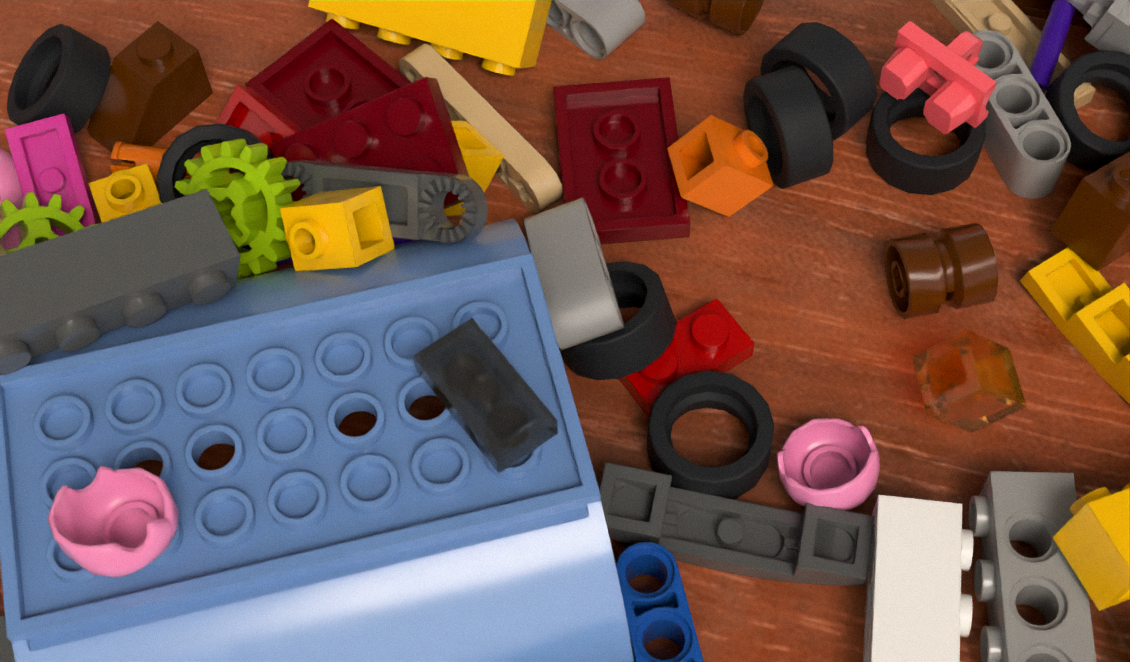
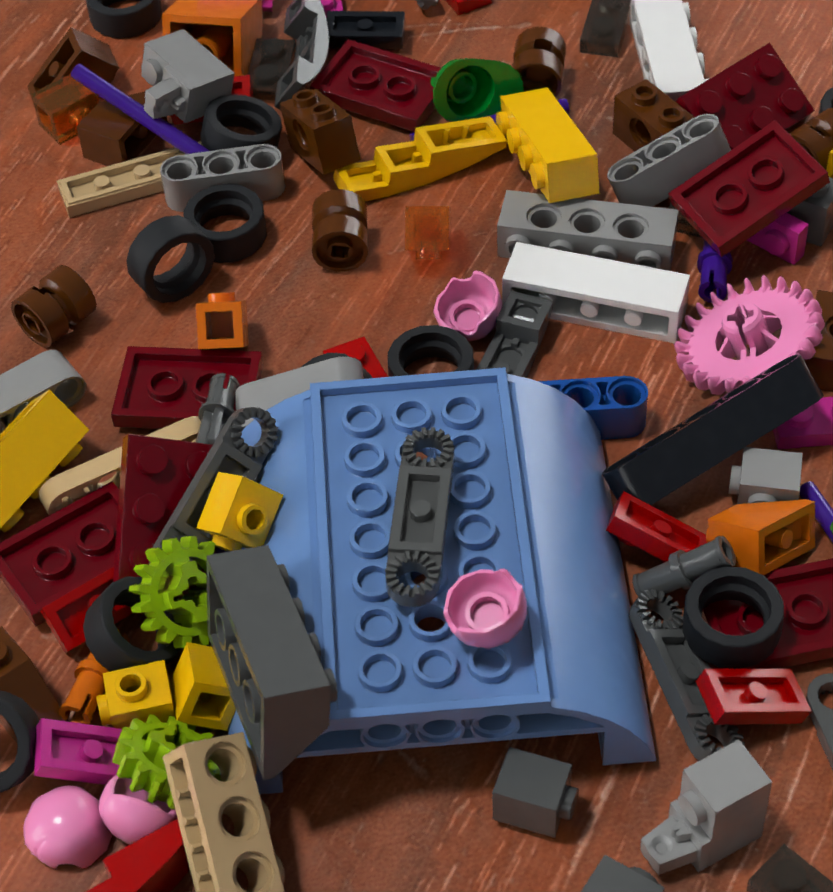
camera: 80 degrees left, 10 degrees down
(287, 419) = (420, 517): none -> dark grey plate
(485, 395) = (428, 404): clear smoke plate -> none
(547, 189) = (217, 408): none -> dark grey axle
(792, 125) = (198, 257): black tyre -> none
(958, 89) = (185, 194): coral hips -> none

